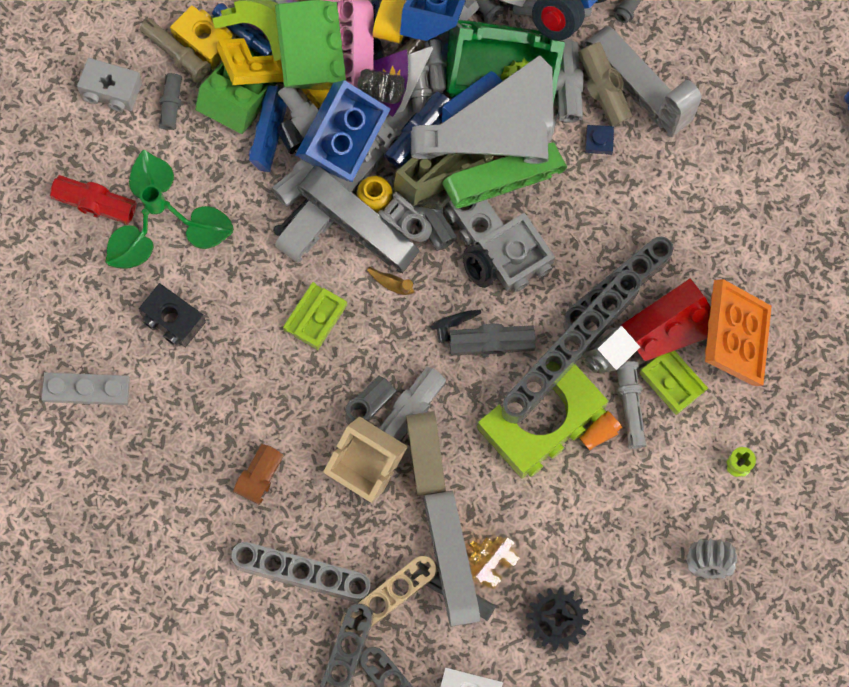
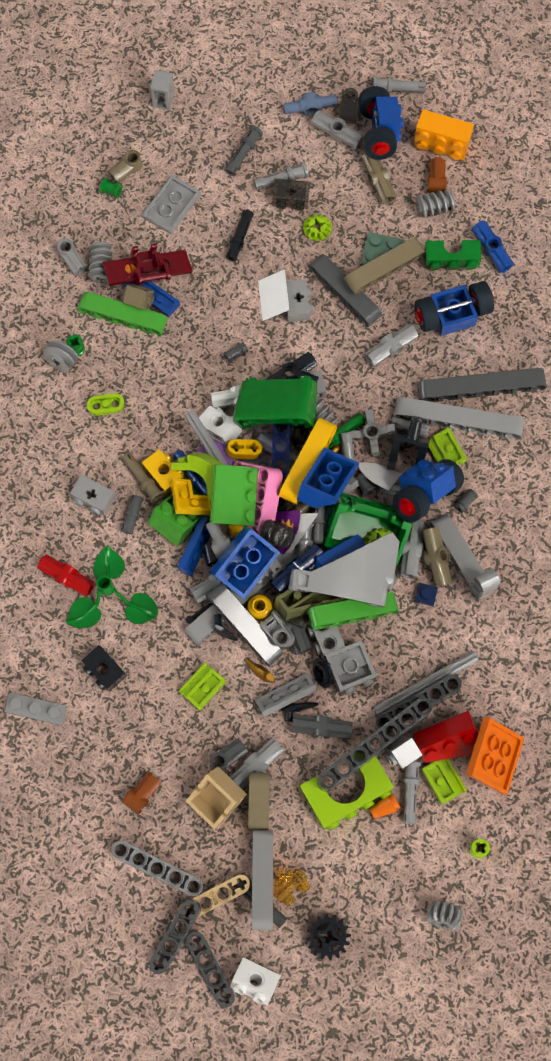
camera: 15 degrees right, 0 degrees up
(326, 232) = (220, 629): none -> black bar
(433, 306) = (285, 695): none -> light grey plate
(657, 229) = (450, 669): none -> light grey axle

